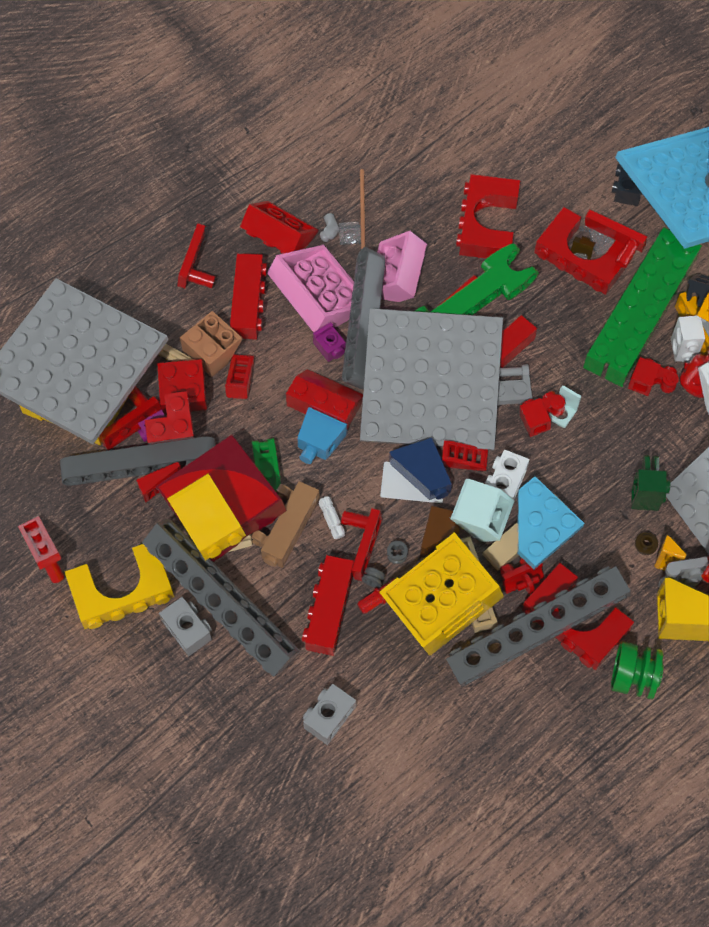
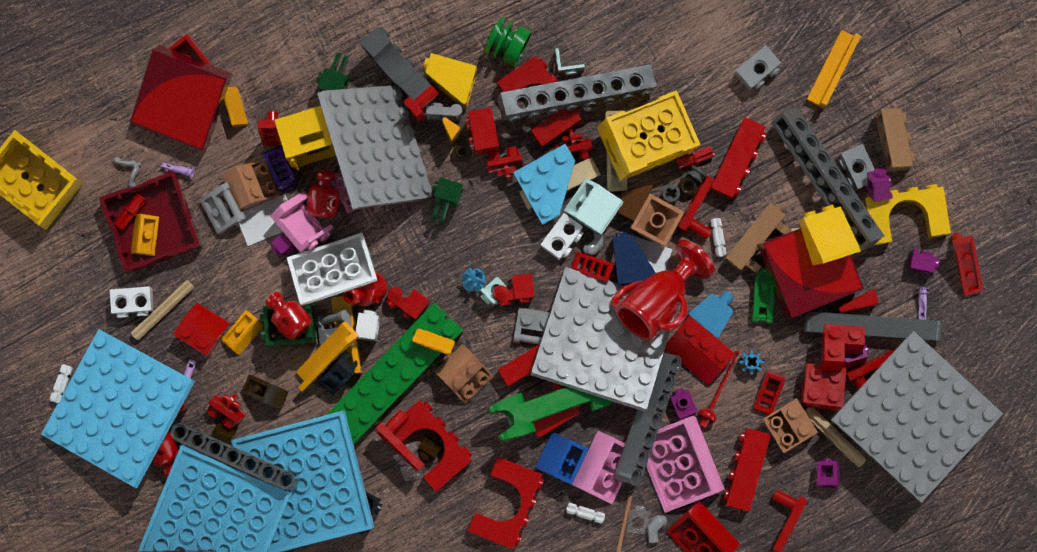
camera: 170 degrees left, 20 degrees up
(87, 509) = (922, 302): none -> lavender piece
(92, 539) = (923, 262): none -> magenta brick
(147, 665) = (894, 139): none -> medium nougat slope
(157, 600) = (878, 185): none -> magenta brick
(163, 303) = (823, 467): none -> magenta brick
(237, 736) = (833, 69): none -> light orange fence
(266, 397) = (756, 362): none -> dark azure gear
(300, 337) = (708, 414): none -> red sword
(380, 557) = (688, 180): none -> dark brown plate
(384, 422) = (656, 299): none -> red piece
(405, 226) = (585, 513): none -> white axle
(405, 513) = (657, 220): none -> nougat slope
(442, 264) = (562, 458): none -> blue slope
(469, 473) = (595, 246): none -> light grey arm
(553, 660) = (569, 70): none -> light aqua bracket
(570, 322) = (464, 373): none -> nougat slope
(583, 413) = (473, 280): none -> dark azure gear
(587, 547) = (505, 165): none -> red hips
(615, 329) = (433, 341): none -> light orange slope
(633, 561) = (483, 131): none -> red brick

